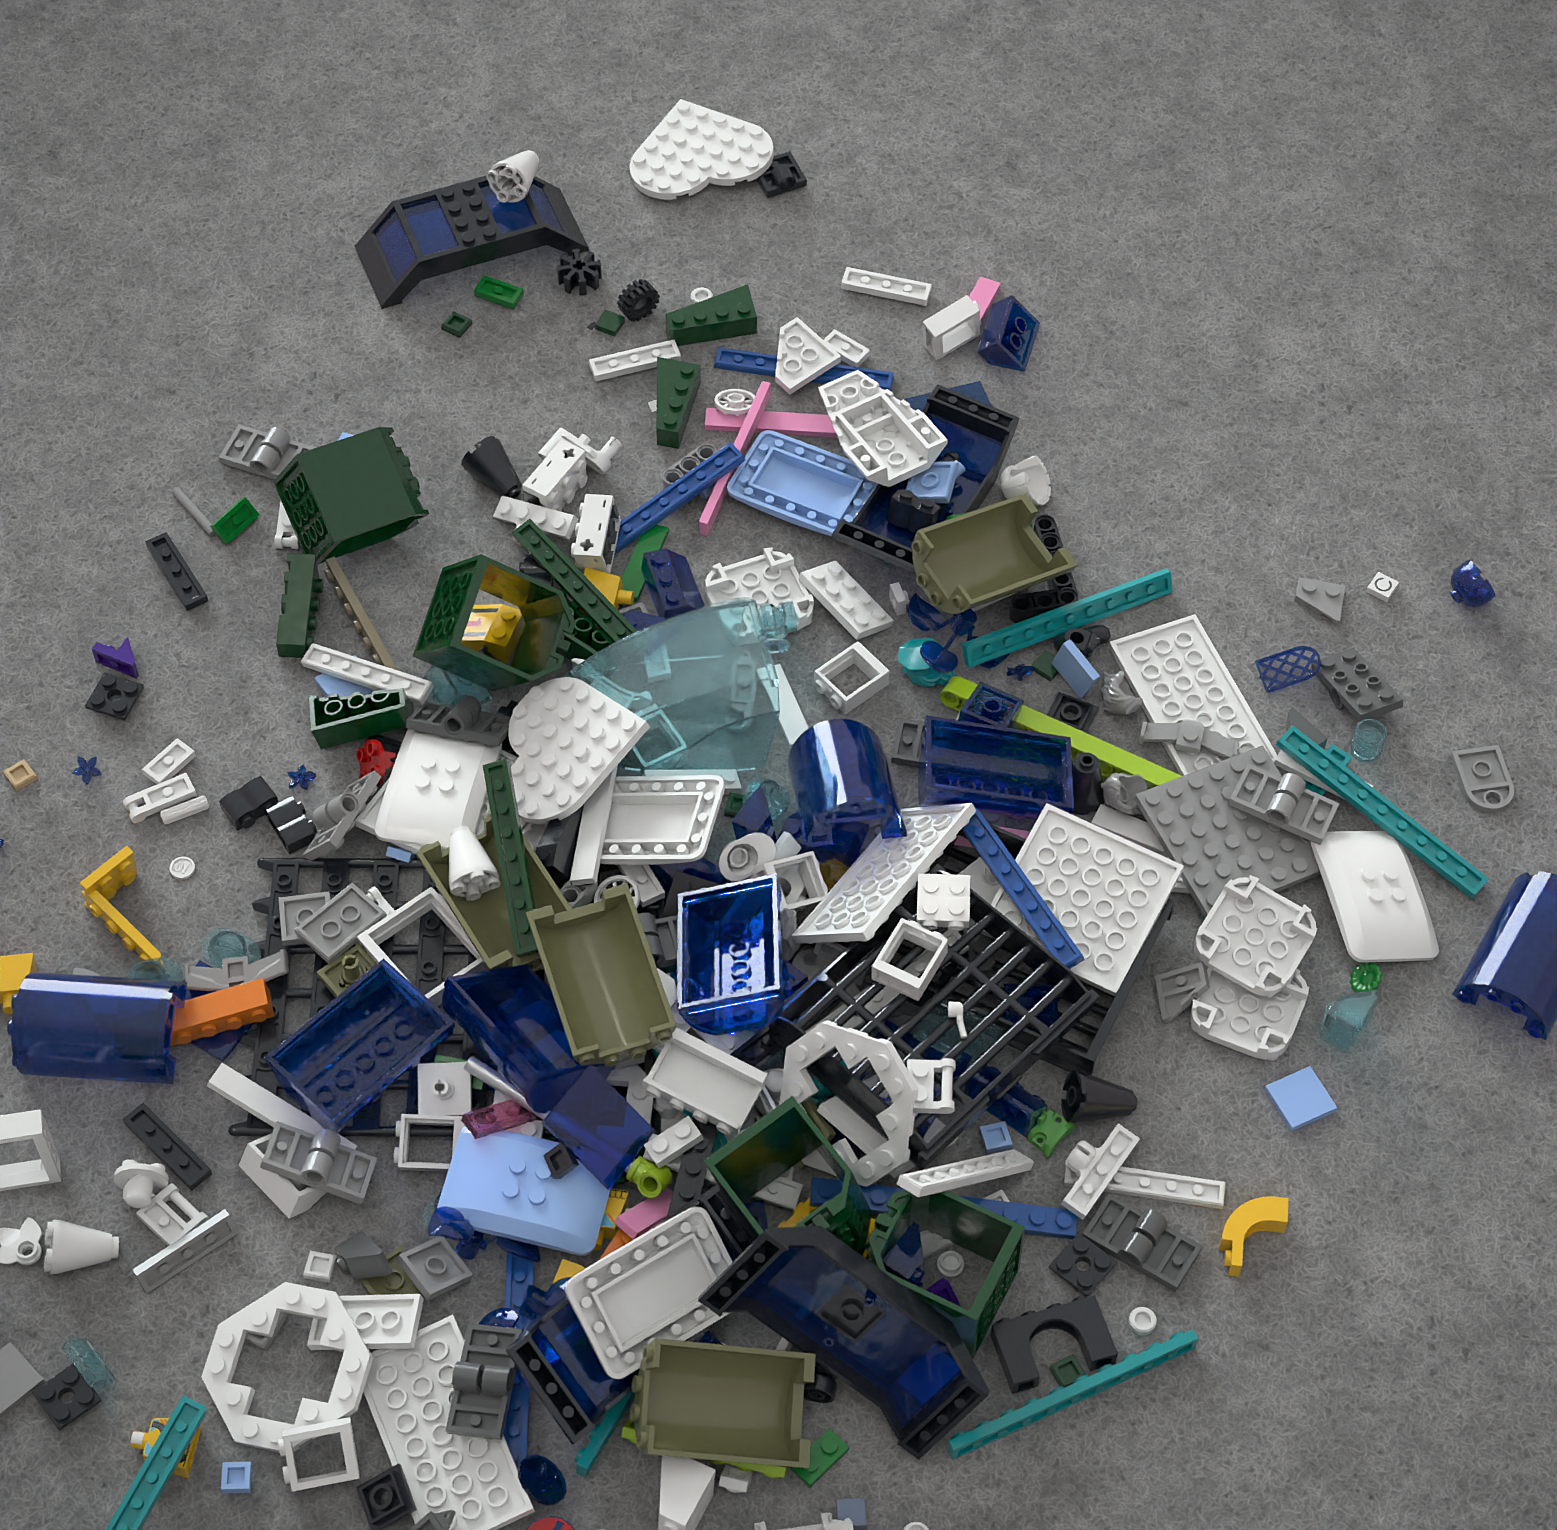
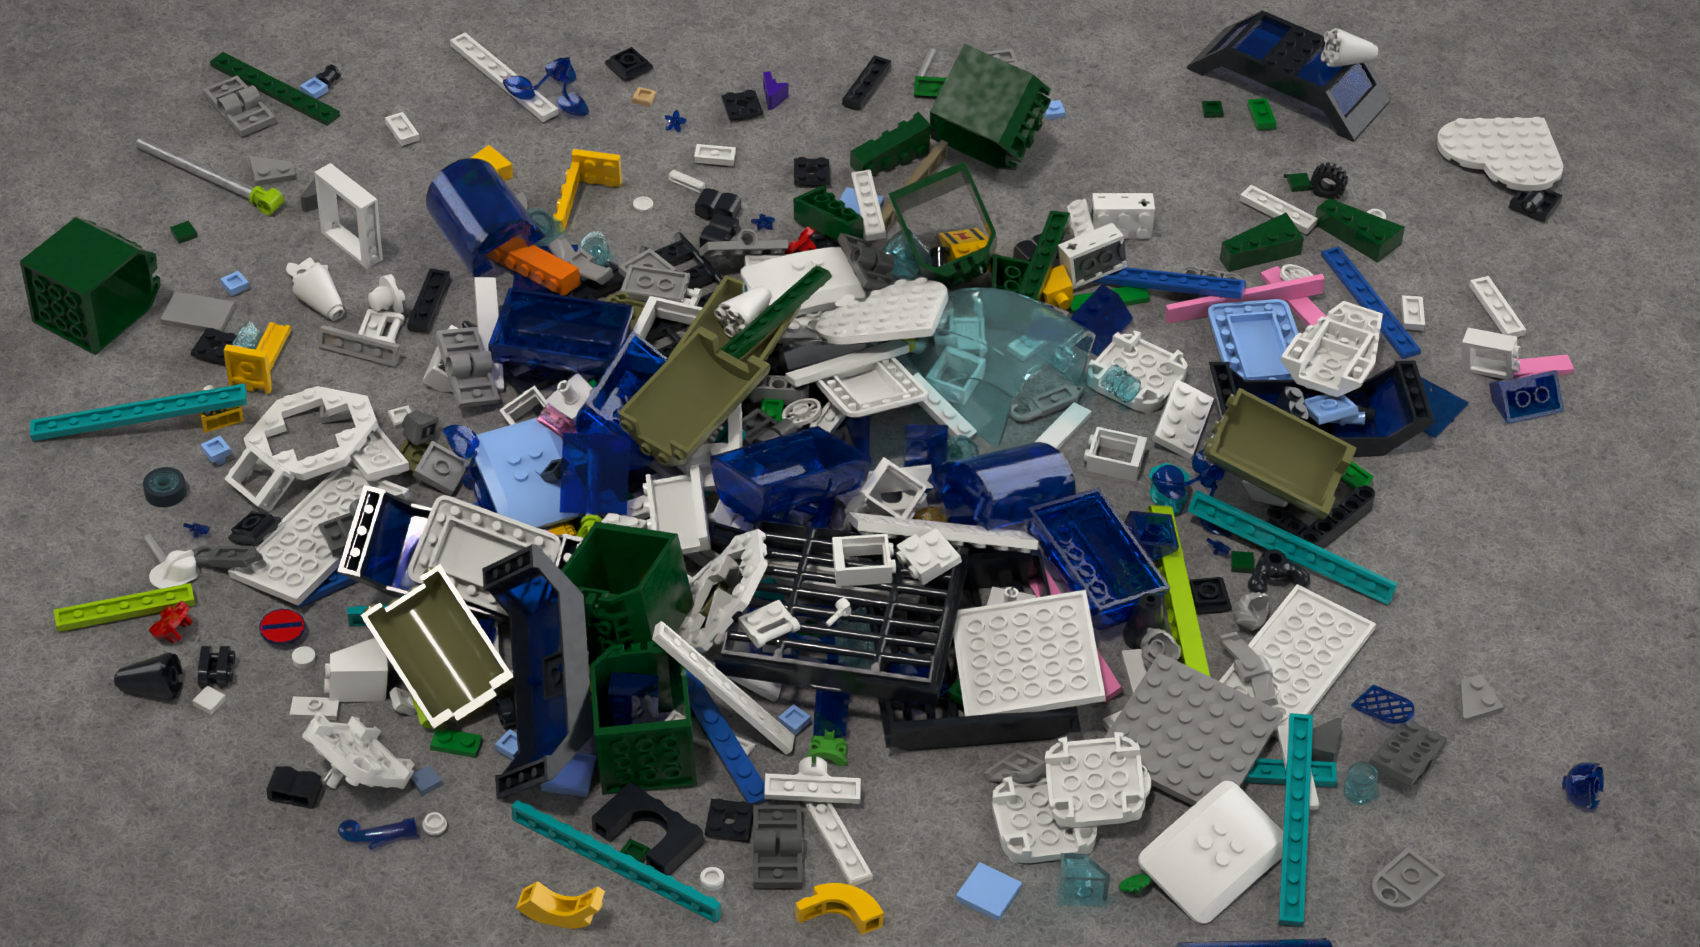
camera: 55 degrees right, 10 degrees down
(143, 1377) = (254, 365): none -> yellow bracket
(159, 797) = (685, 164): white plate -> none
(264, 683) = (818, 166): none -> black piece
(492, 467) = (1104, 175): black cone -> none
(542, 1480) = (325, 598): clear blue piece -> none
(579, 272) = (1323, 143): black gear -> none
(595, 459) = (1167, 228): white piece -> none
(746, 854) = (887, 446): white piece -> none
(802, 356) = (1375, 289): white plate -> none
(860, 1408) = (508, 744): none -> light blue plate
(1021, 891) = (997, 614): blue tile -> none
(1029, 478) = (1394, 467): white hair -> none
(1075, 669) = (1243, 568): light blue tile -> none
(1095, 1098) = (873, 758): black cone -> none
(1107, 1473) = (559, 910): none -> yellow arch
(1284, 803) = (1235, 744): light grey plate -> none
(1382, 587) = (1529, 733): white tile -> none

